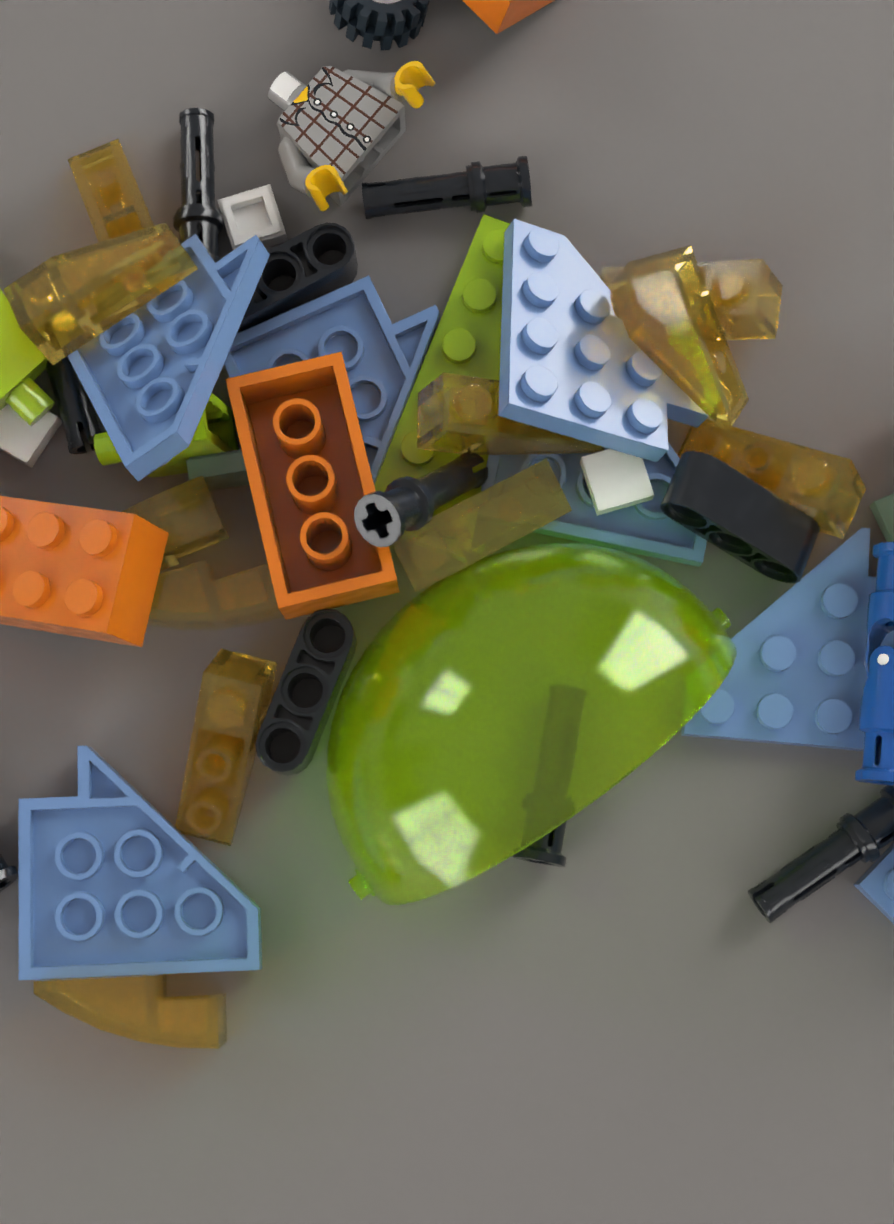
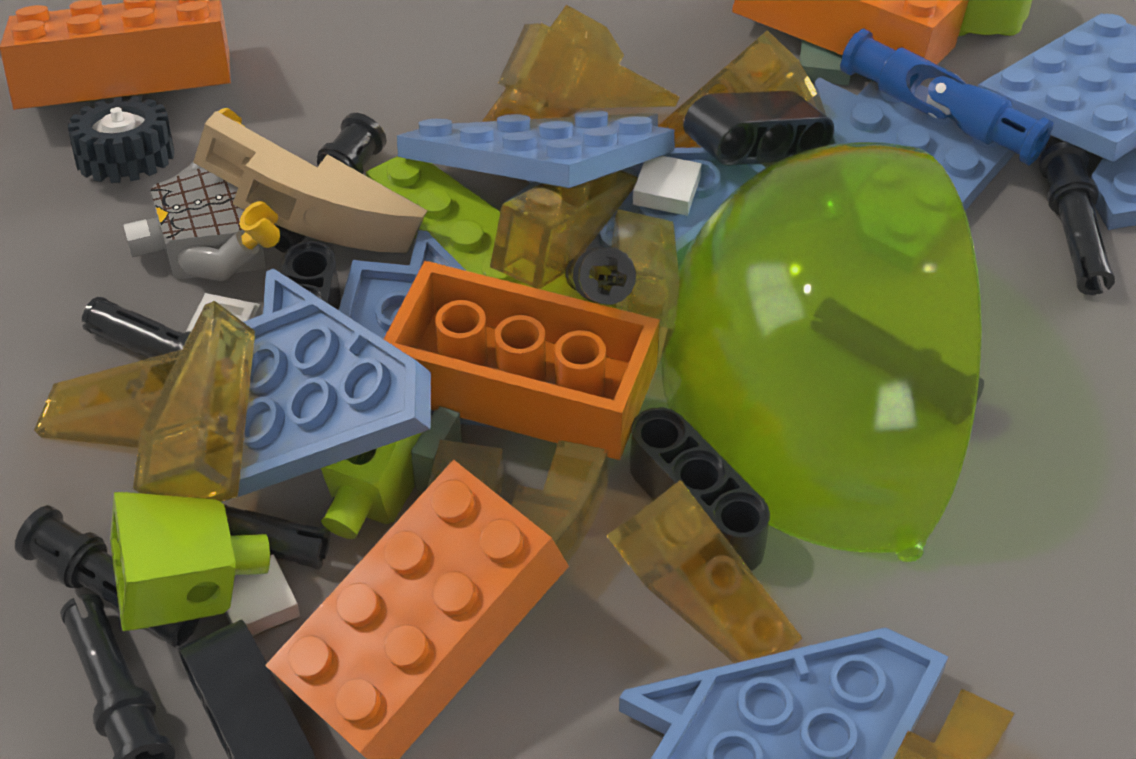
camera: 60 degrees left, 30 degrees down
(400, 217) = (318, 202): none -> tan slope

